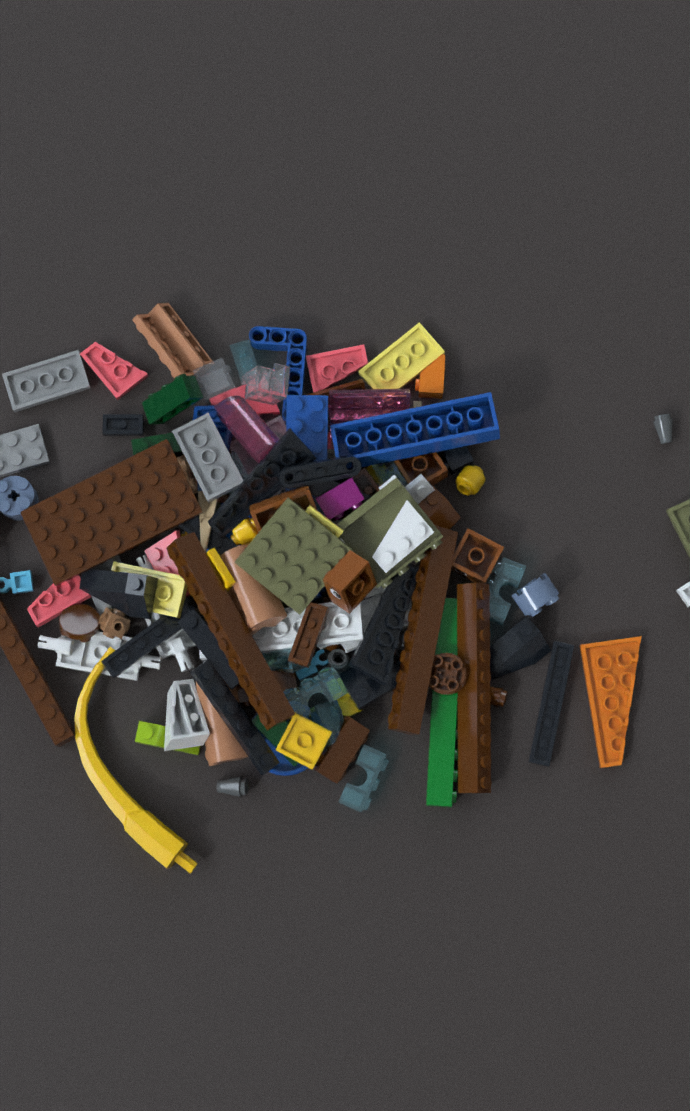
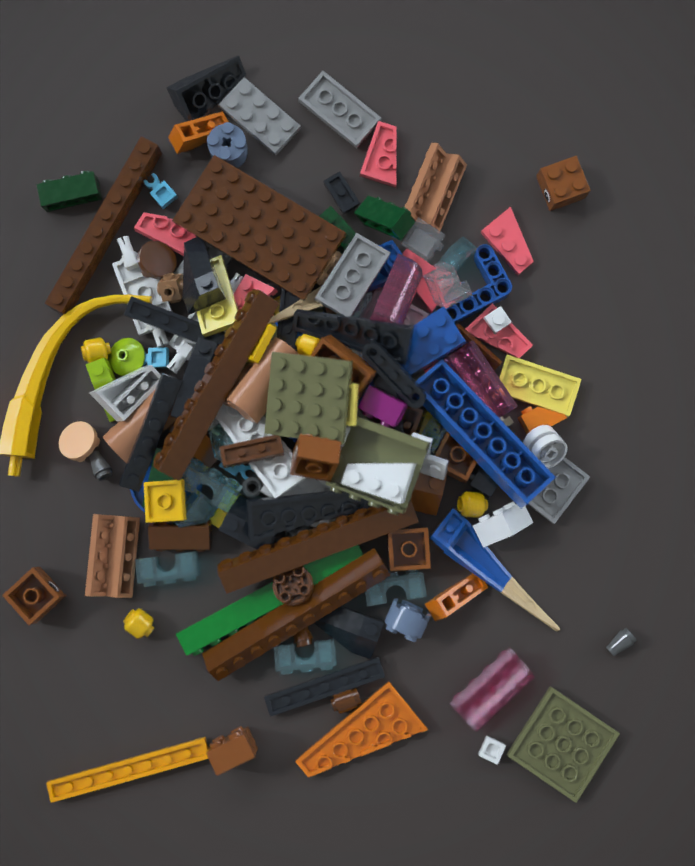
camera: 55 degrees right, 5 degrees up
(125, 727) = (95, 349): none -> yellow head
(157, 699) = (133, 358): none -> lime dish
(165, 677) = (157, 357): none -> medium azure plate
(198, 791) = (78, 441): none -> light nougat tile
(238, 232) = (563, 183): none -> dark orange brick
(259, 309) = (508, 241): none -> coral wing
(314, 913) = (34, 595): none -> dark orange brick
(322, 820) = (112, 556): none -> nougat brick
(323, 360) = (497, 320): none -> white plate
(396, 834) = (138, 623): none -> yellow head
(458, 384) = (546, 445): none -> white wheel
(503, 463) = (502, 524): none -> white brick
(503, 508) = (462, 544): none -> blue plate
(505, 397) = (561, 491): none -> light grey plate
(520, 922) = (127, 769): none -> light orange plate
(524, 688) = (288, 660): none -> clear light blue arch
(541, 542) = (455, 597): none -> orange slope
(558, 814) = (232, 750): none -> dark orange brick
(574, 692) = (346, 700): none -> reddish brown brick
(639, 560) = (492, 689): none -> clear pink brick

